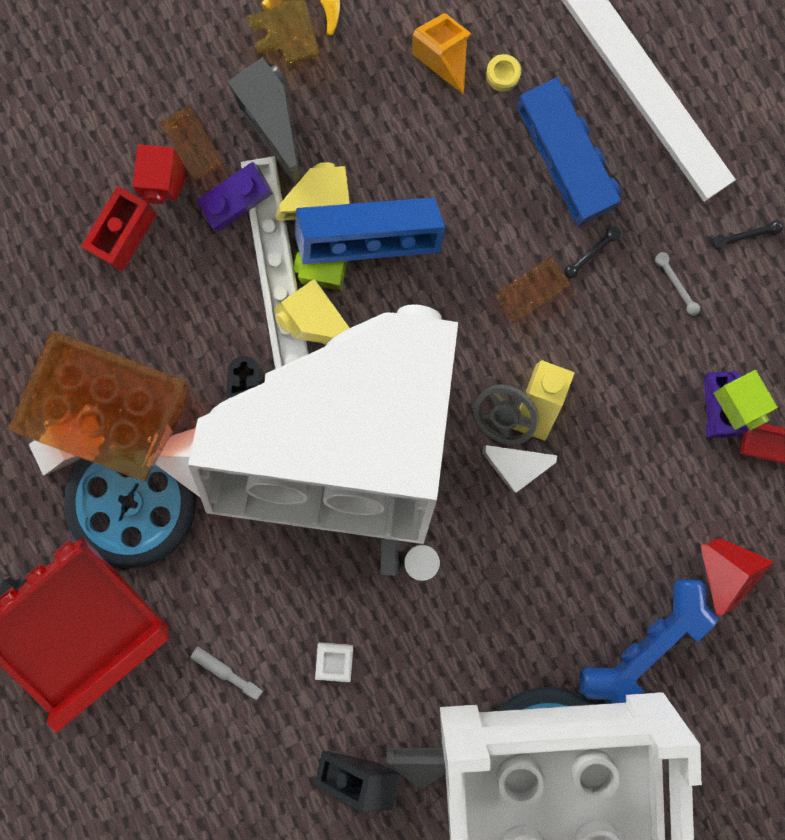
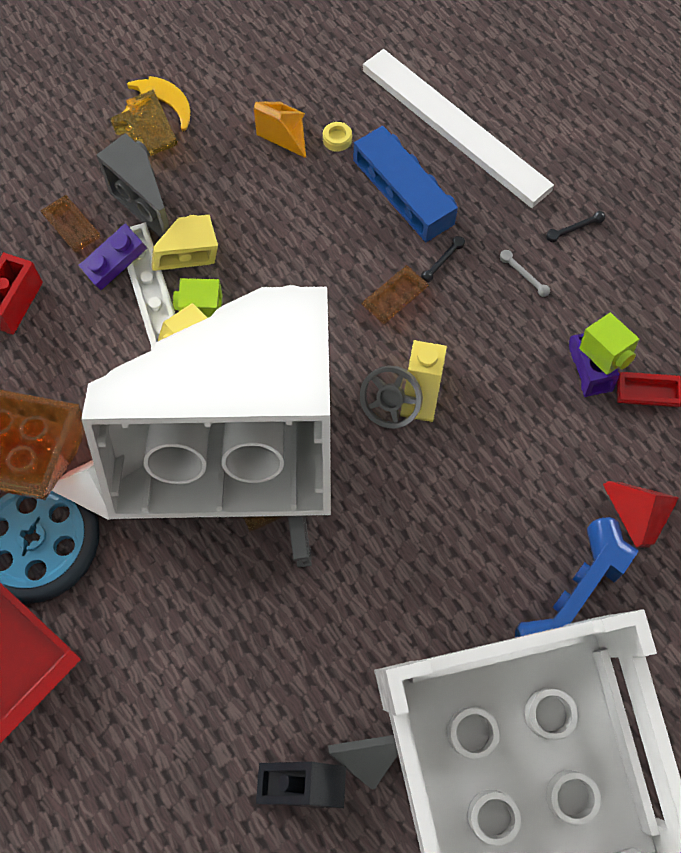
camera: 10 degrees left, 20 degrees down
(158, 173) = (40, 237): red slope -> none
(224, 672) = (144, 695): light grey piece -> none
(334, 662) = (259, 664): white tile -> none
(368, 230) = (237, 259): blue brick -> none
(422, 562) = (334, 549): white tile -> none
(517, 466) = (410, 441): white slope -> none

